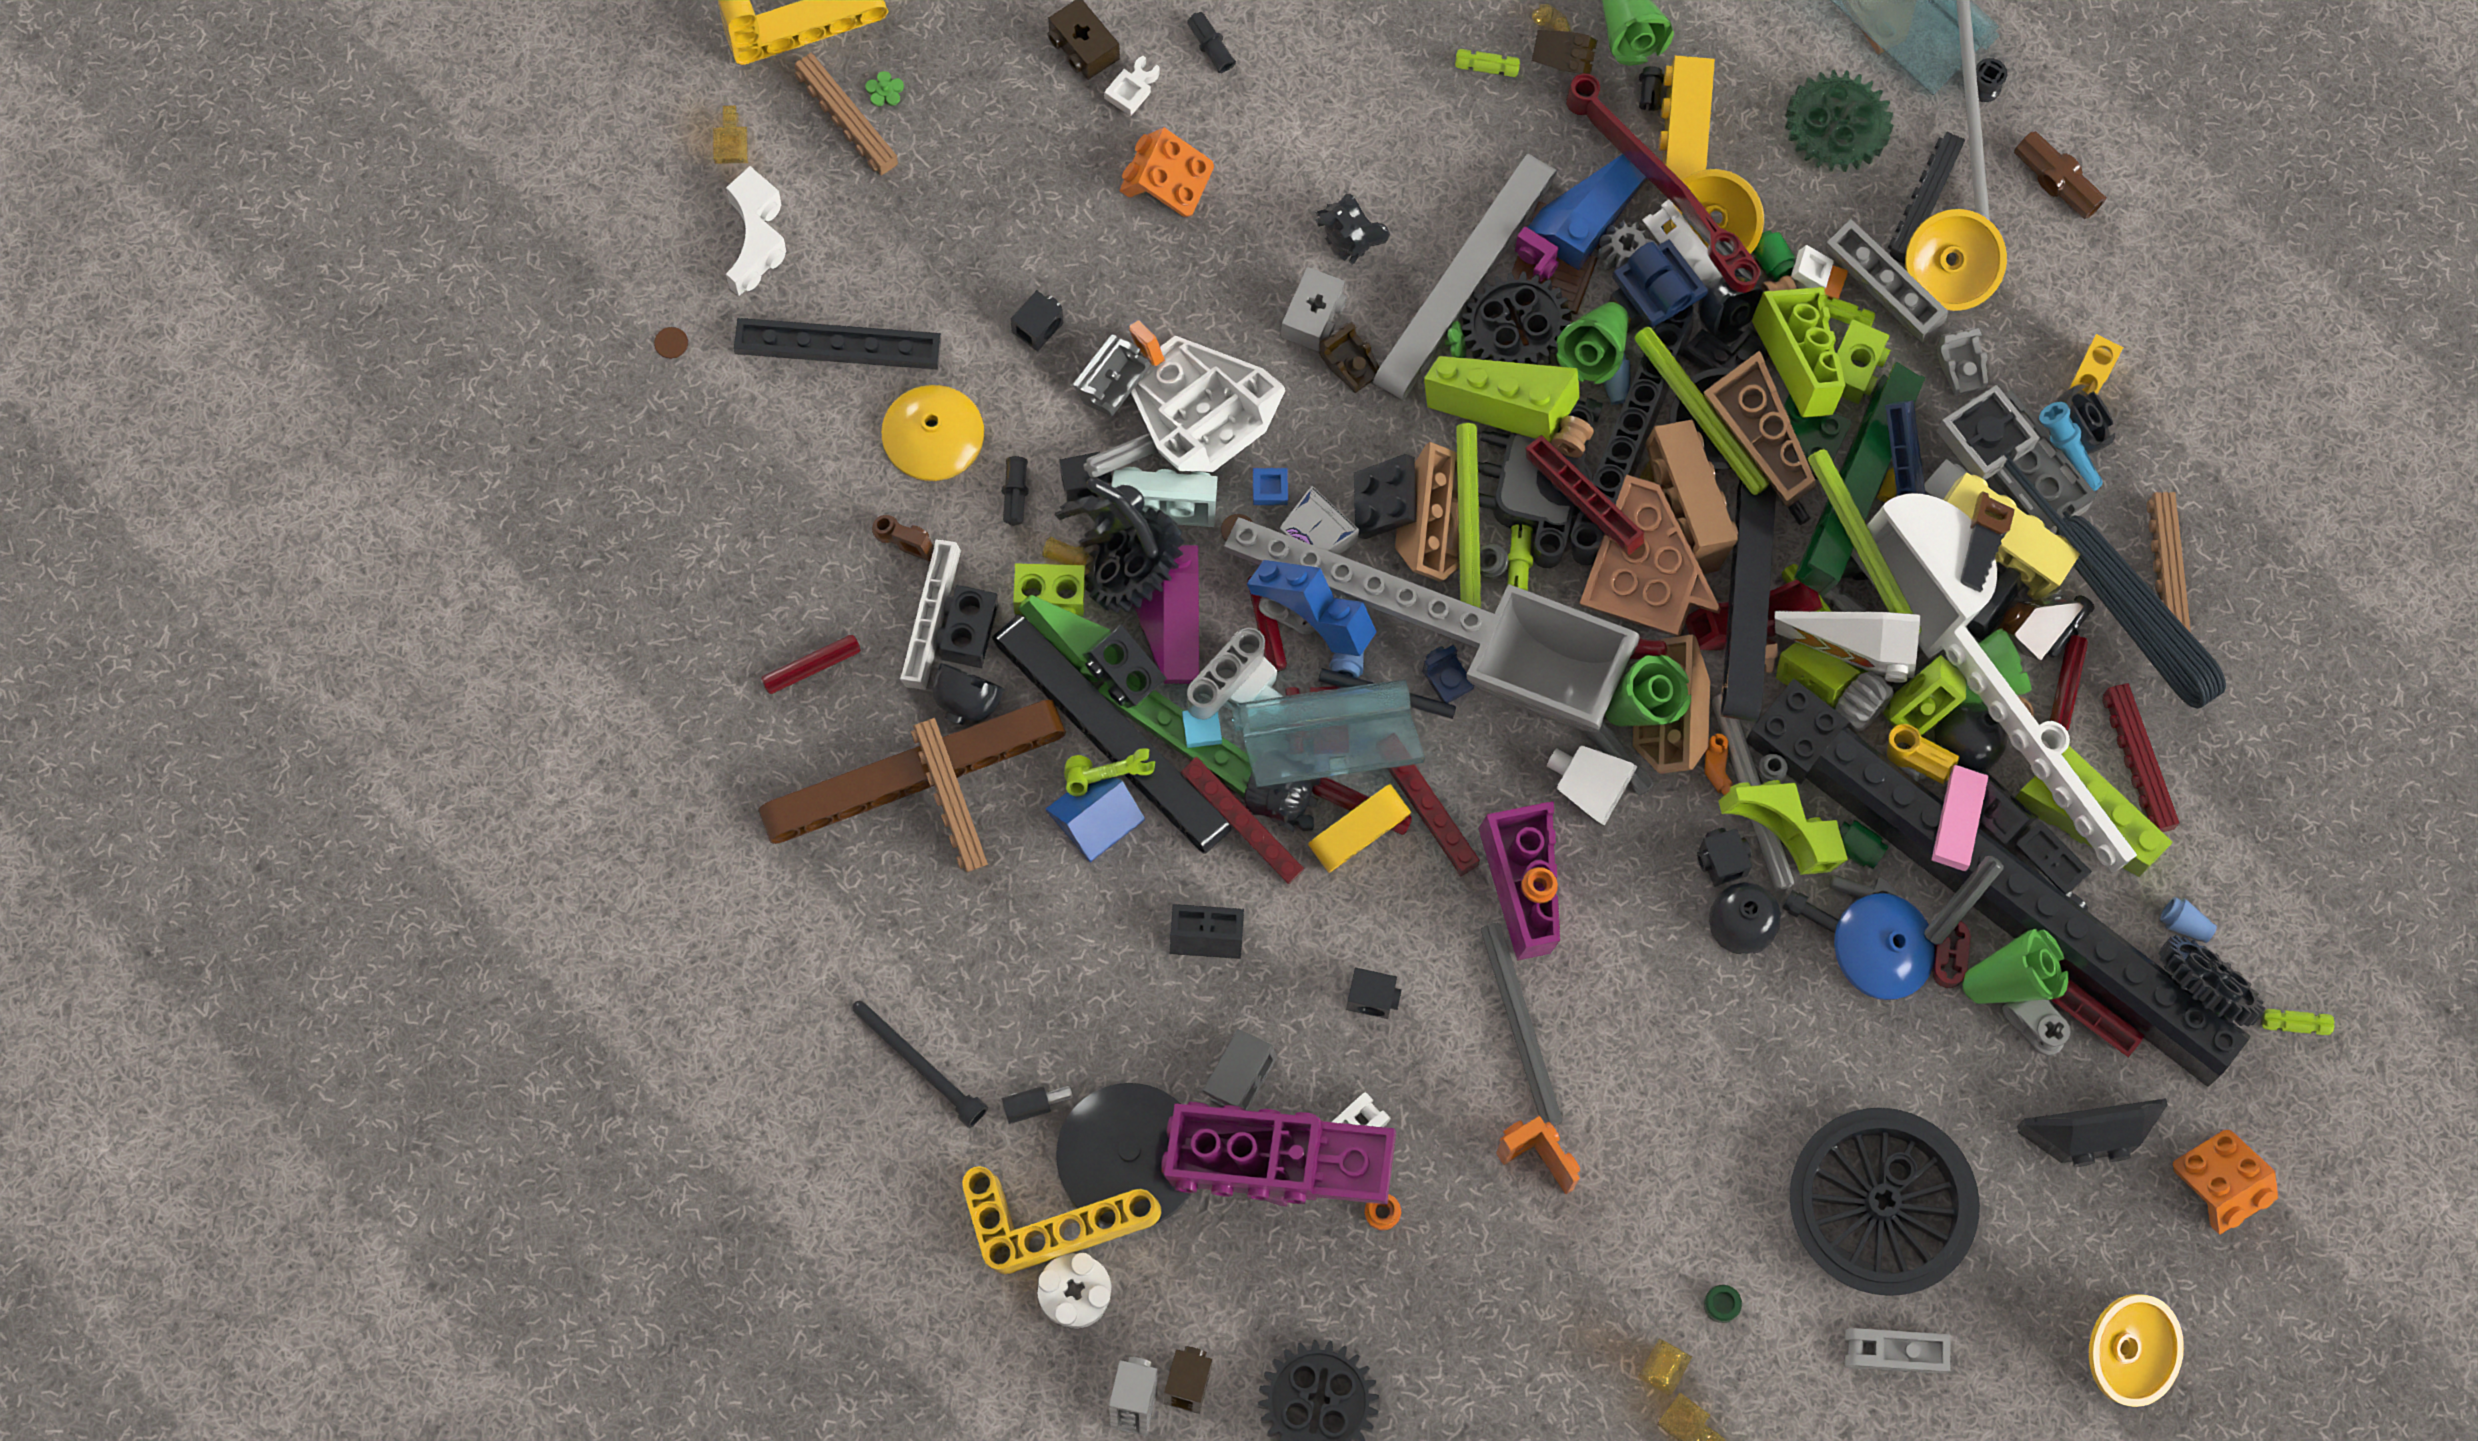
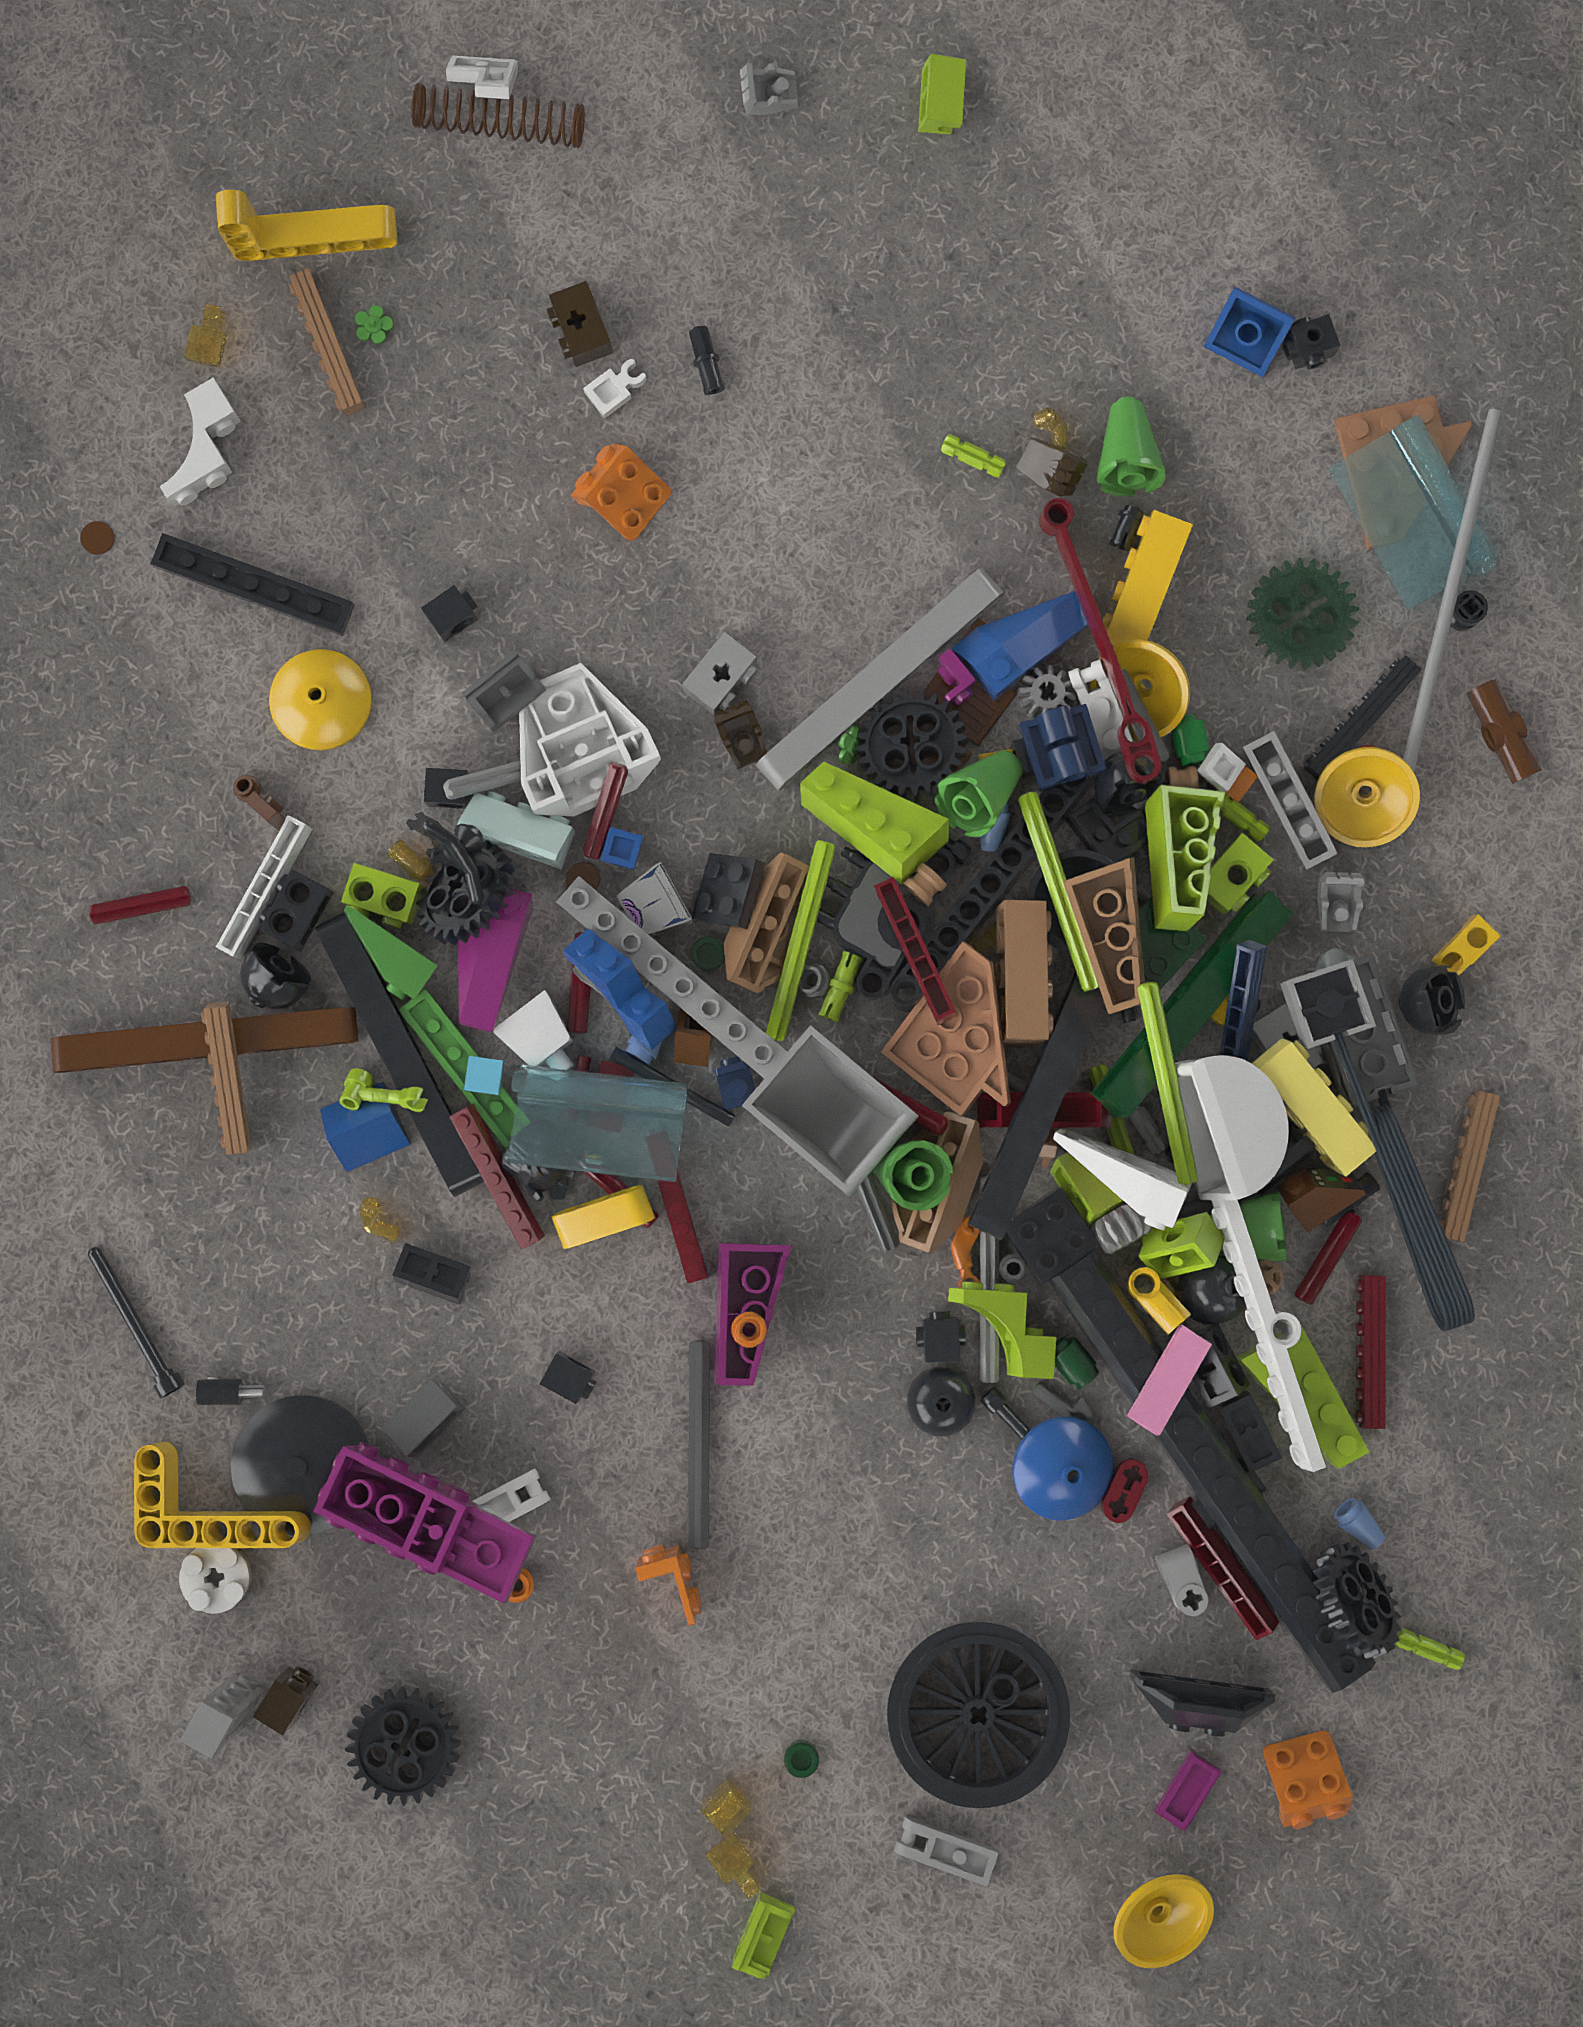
camera: 20 degrees right, 15 degrees up
(1015, 490) = (380, 783): black axle -> none
(1129, 660) = (428, 998): black brick -> none
(1131, 898) = (374, 1220): none -> clear yellow arm
(1147, 343) = (546, 667): orange tile -> none
(1230, 658) = (500, 1035): light grey beam -> none
(1243, 455) = (605, 810): none -> dark red axle
(1350, 228) = (780, 599): black hair -> none
(1383, 560) = (707, 953): none -> dark green tile
(1393, 640) = (691, 1041): none -> reddish brown slope
(1592, 779) = (837, 1230): white torso -> none
(1963, 900) = (1148, 1455): dark grey axle -> none
(1985, 539) = (1283, 1119): piece -> none
(2019, 972) = (1178, 1539): bright green cone -> none
(2066, 436) = (1409, 1020): dark azure pin -> none
(2113, 1226) = (1187, 1791): none -> magenta tile

